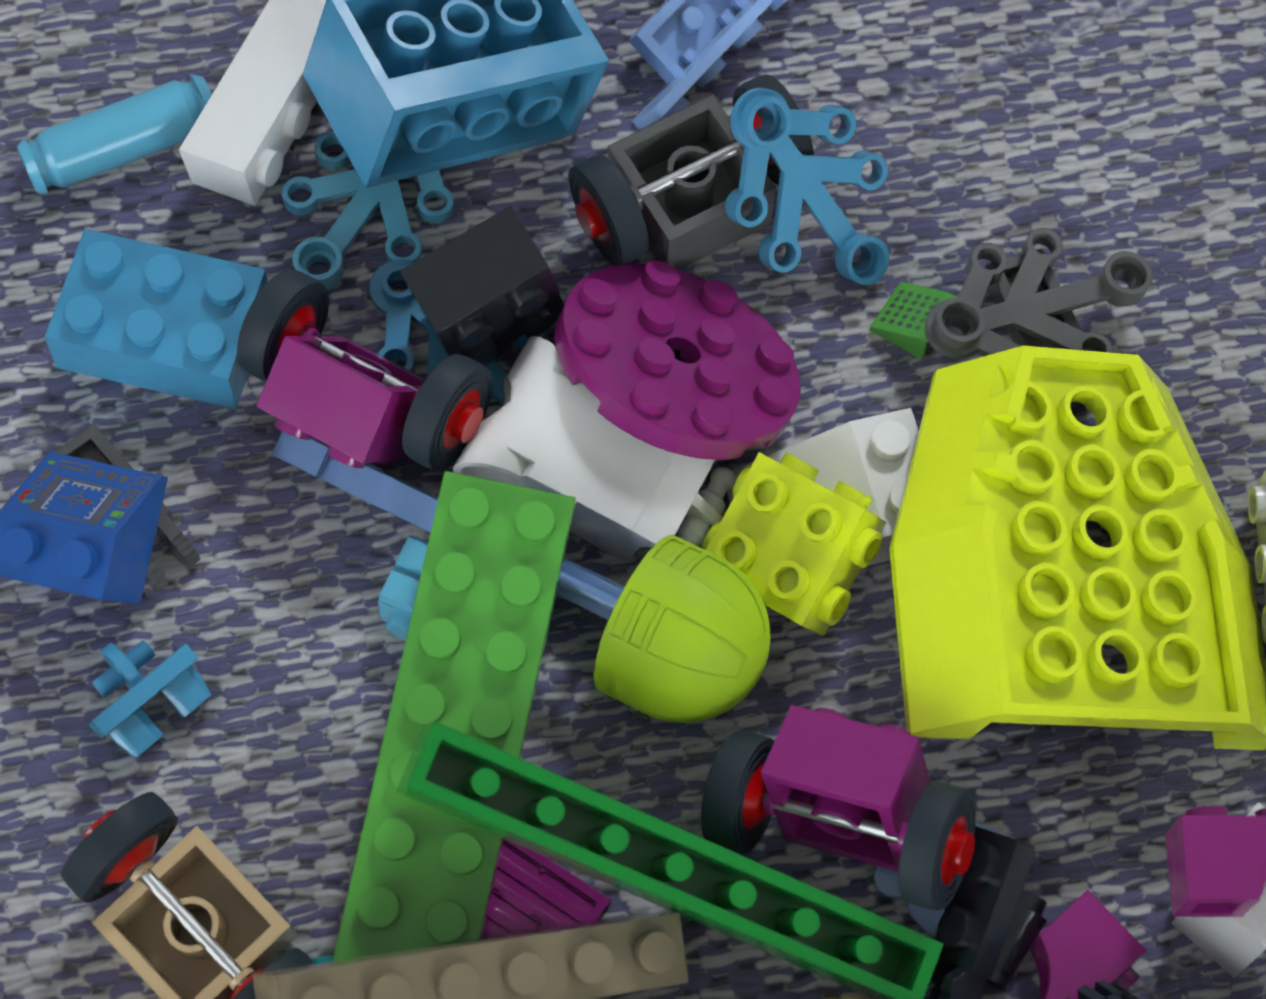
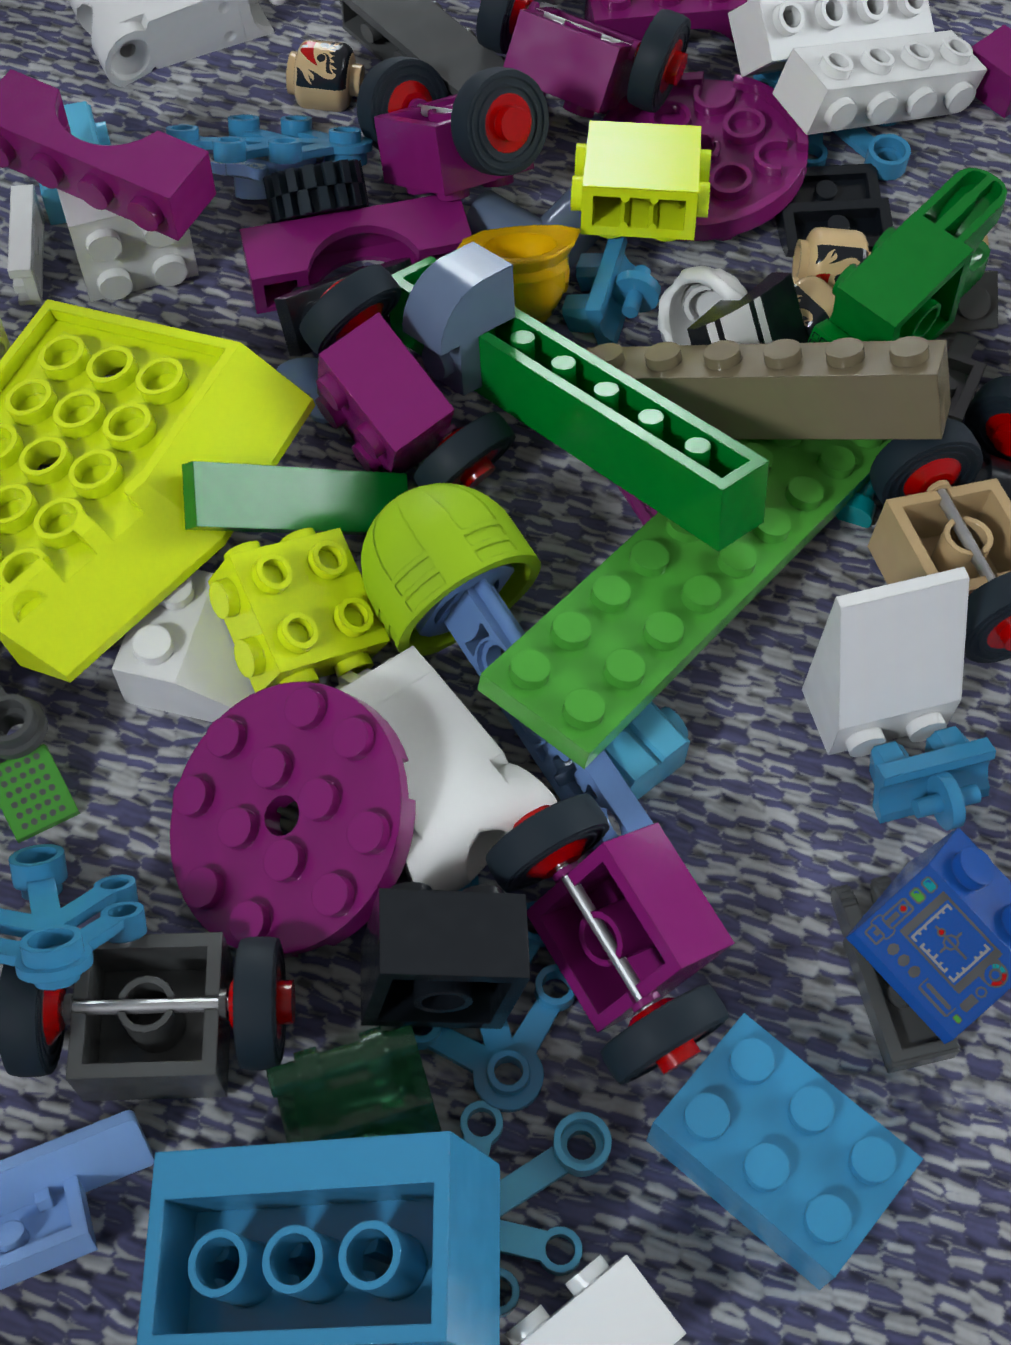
camera: 150 degrees left, 5 degrees down
(225, 748) = (890, 663): none -> white slope
(515, 176) = (355, 1089): none -> clear green brick
(826, 892) = (455, 305): none -> sand blue brick
(863, 620) = (284, 497): none -> tile

